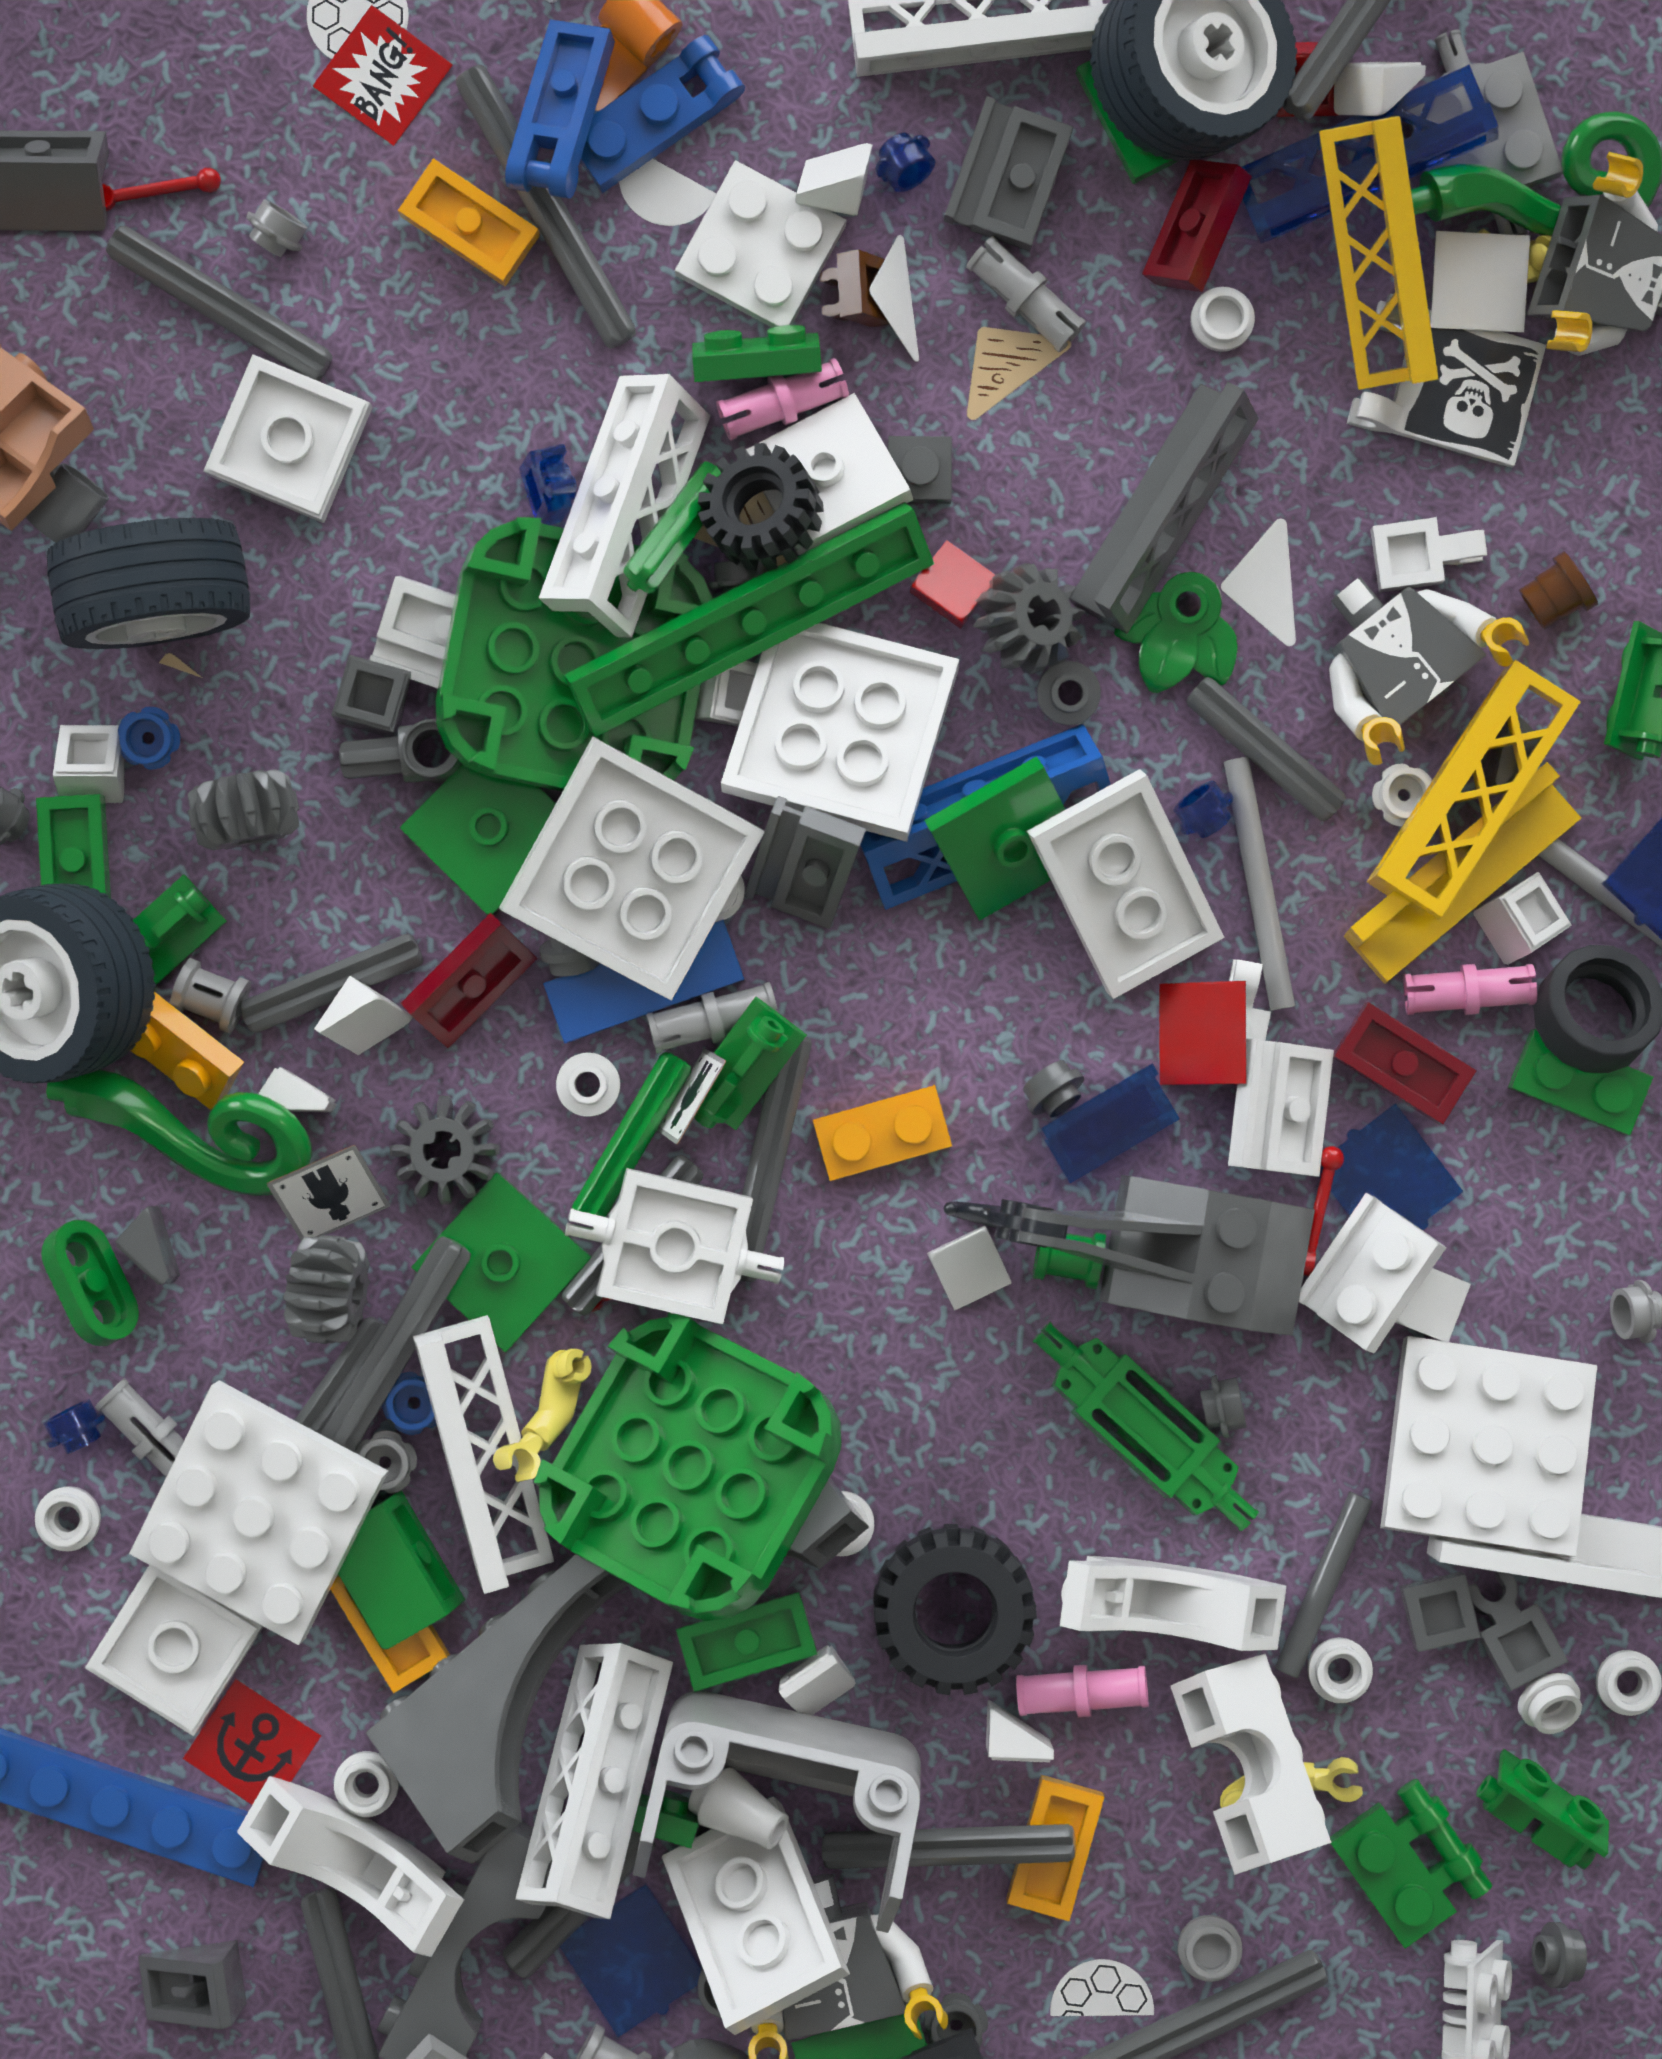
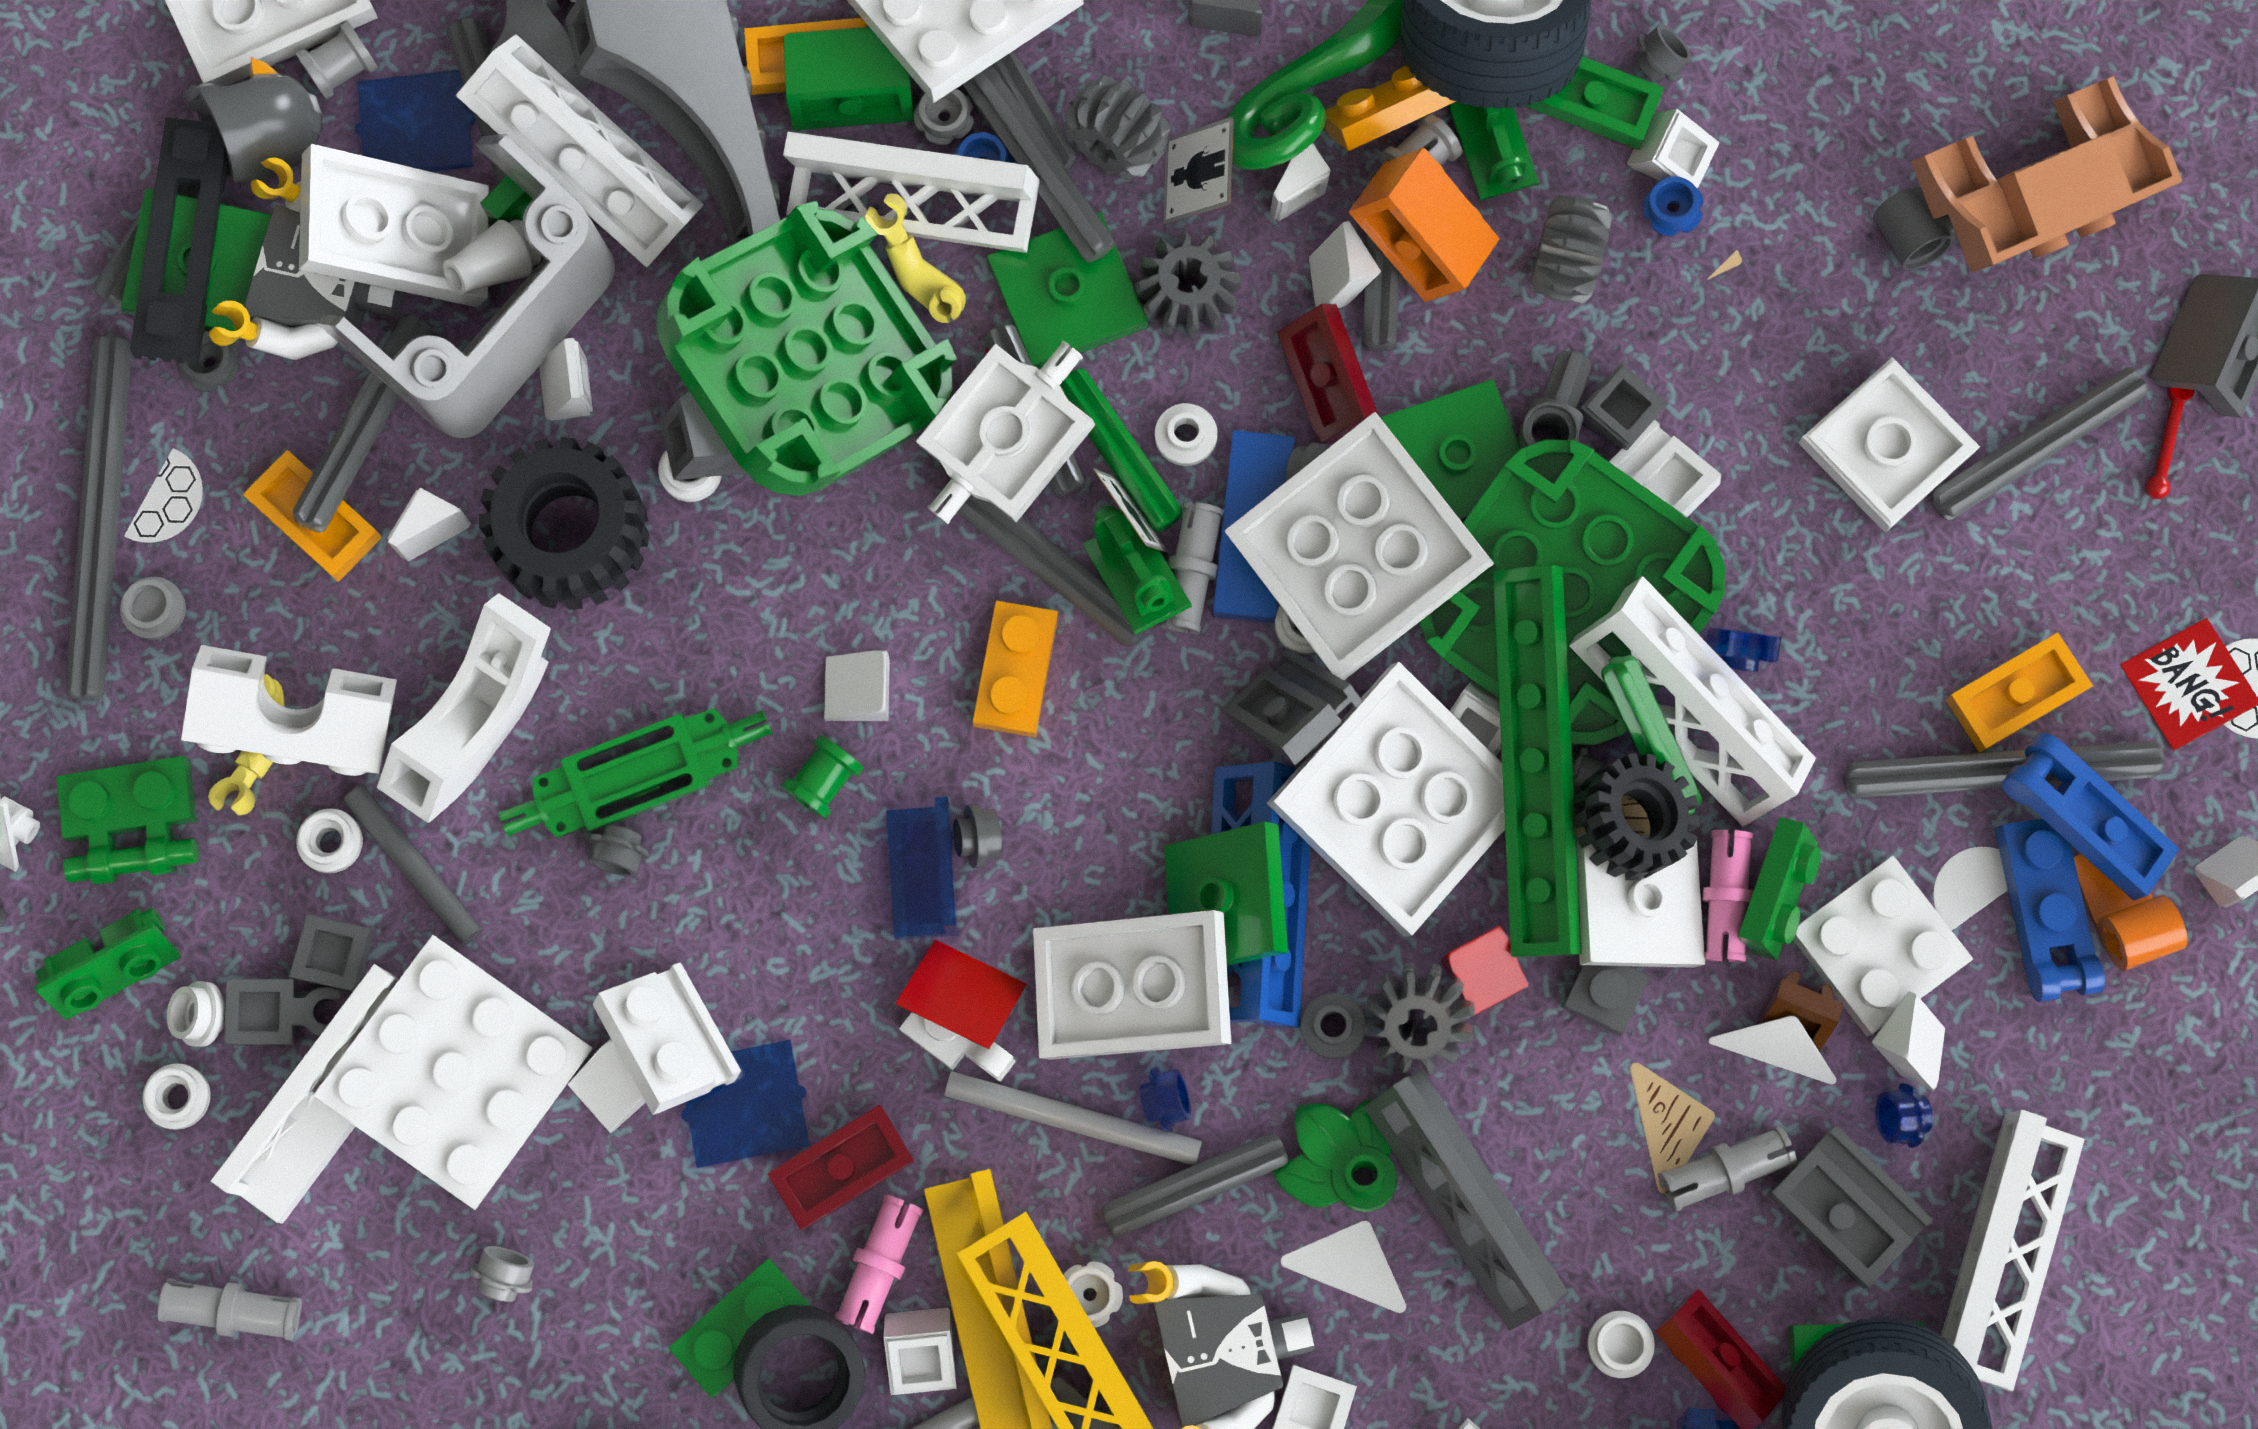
camera: 120 degrees right, 10 degrees down
(148, 583) = (1811, 252): black wheel -> none
(276, 228) = (2087, 522): light grey plate -> none
(288, 954) = (1424, 225): none -> orange brick
(748, 1642) = (628, 342): green plate -> none
(1082, 1691) = (434, 604): bright pink pin -> none
(1177, 1250) = (772, 869): dark grey slope -> none
(1281, 1108) = (857, 1031): white plate -> none
(1331, 1160) = (787, 1057): red hinge -> none

